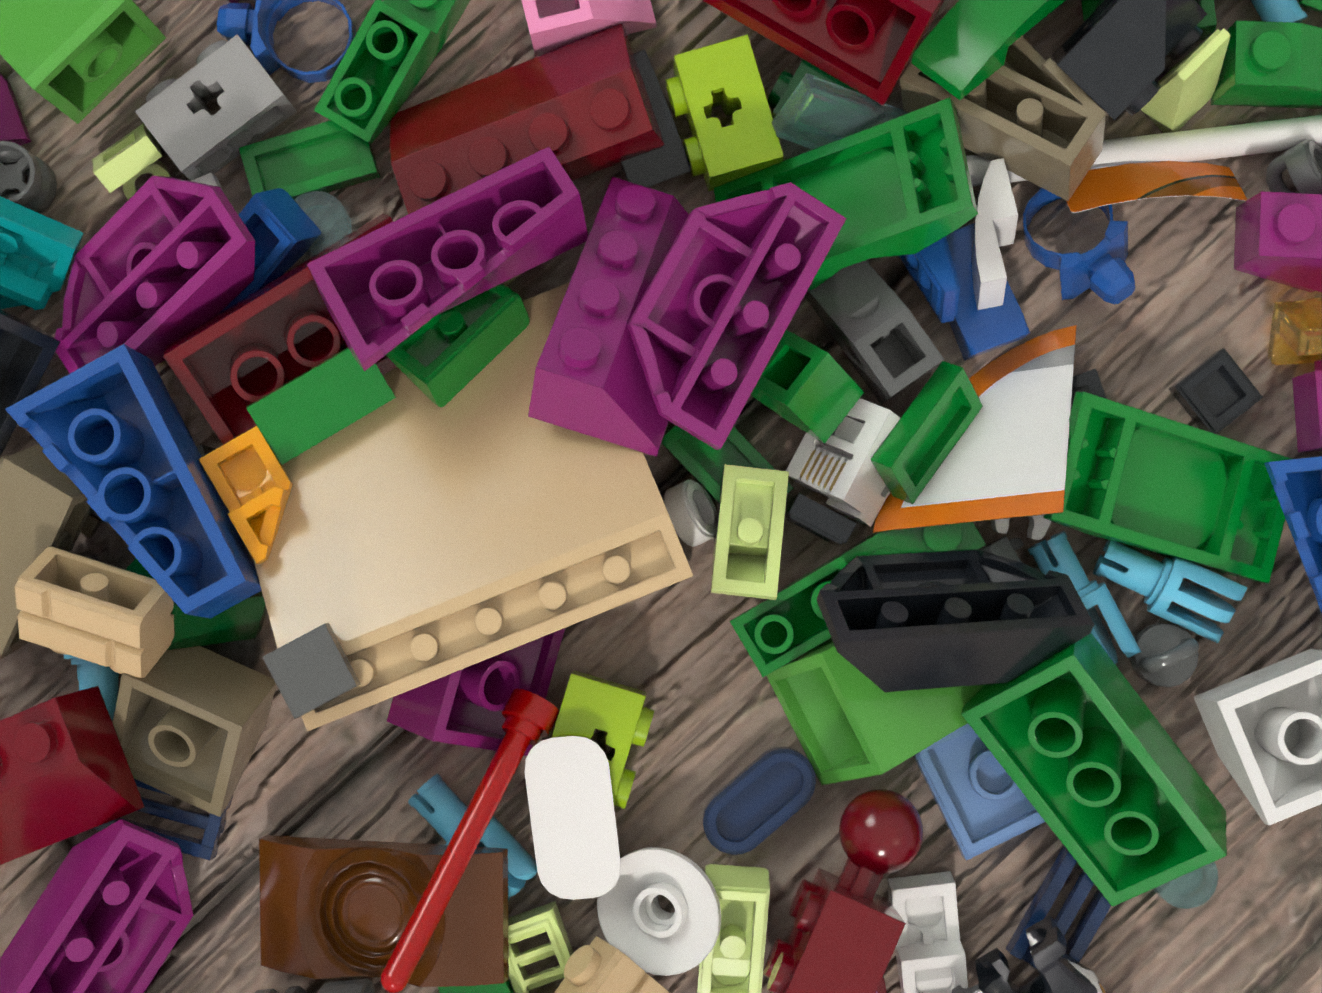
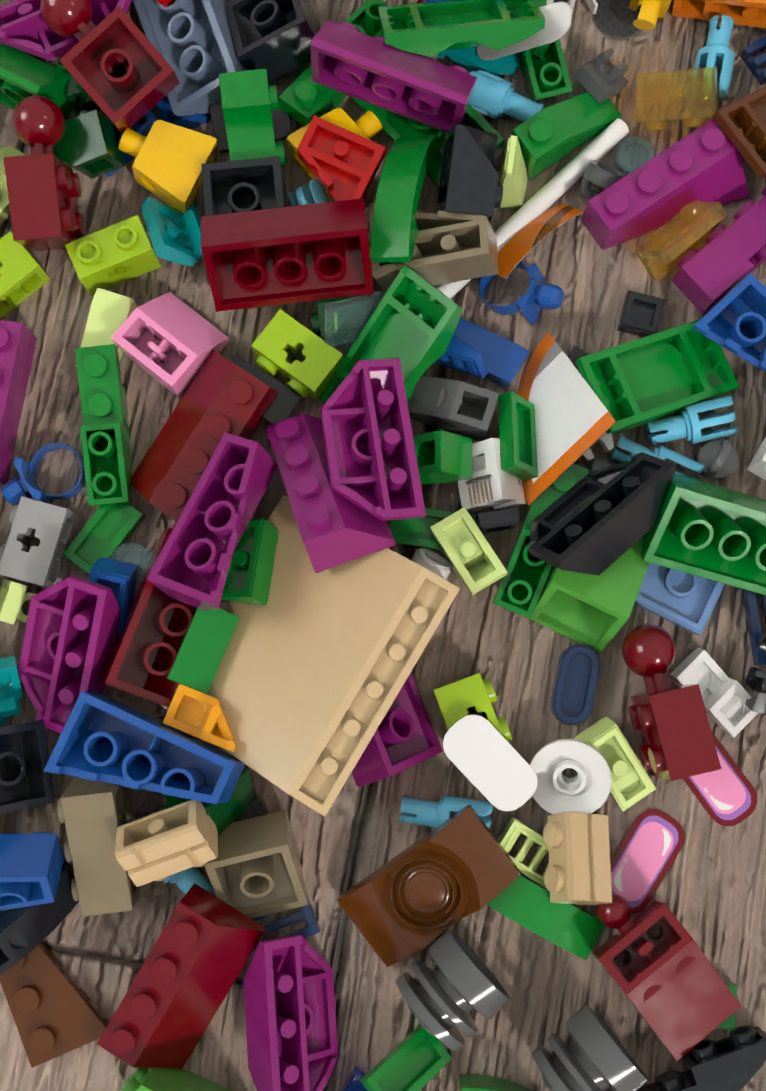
camera: 35 degrees left, 5 degrees down
(311, 670) = (304, 782): dark grey tile -> none
(525, 721) = (429, 732): red piece -> none
(993, 228) = (473, 318): white slope -> none

